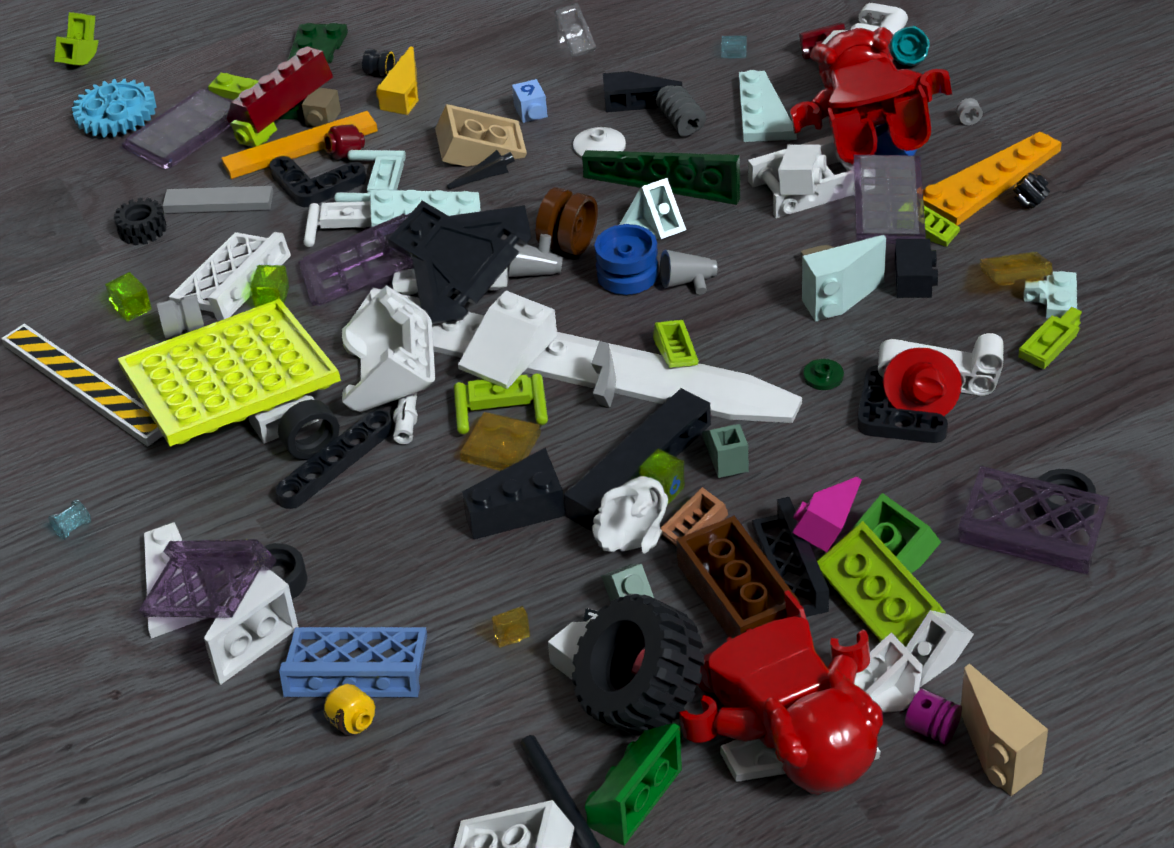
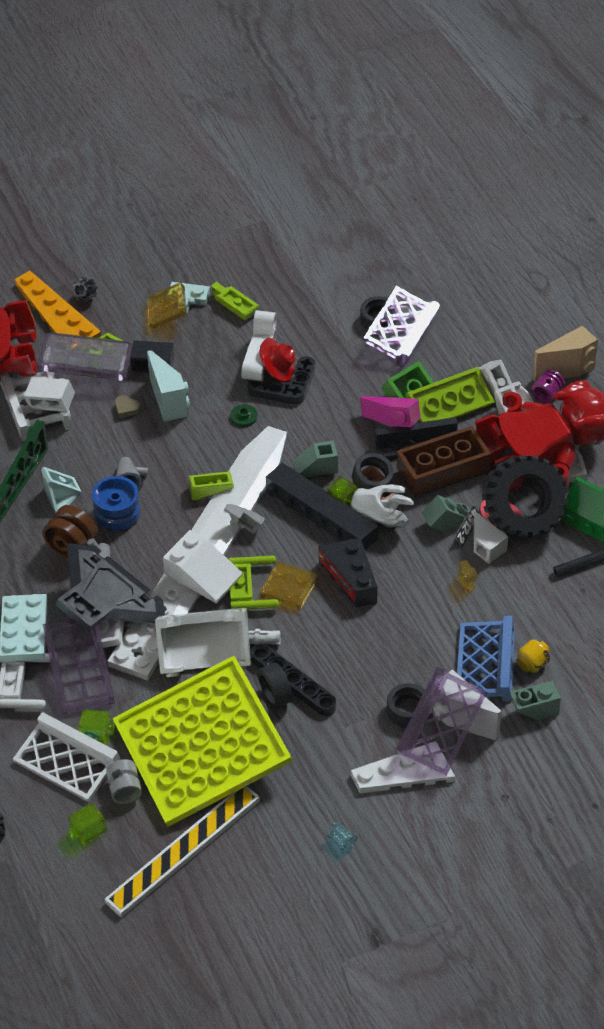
camera: 90 degrees left, 5 degrees up
(260, 712) = (537, 700): none -> sand green slope
(687, 478) = (375, 460): none -> black tyre

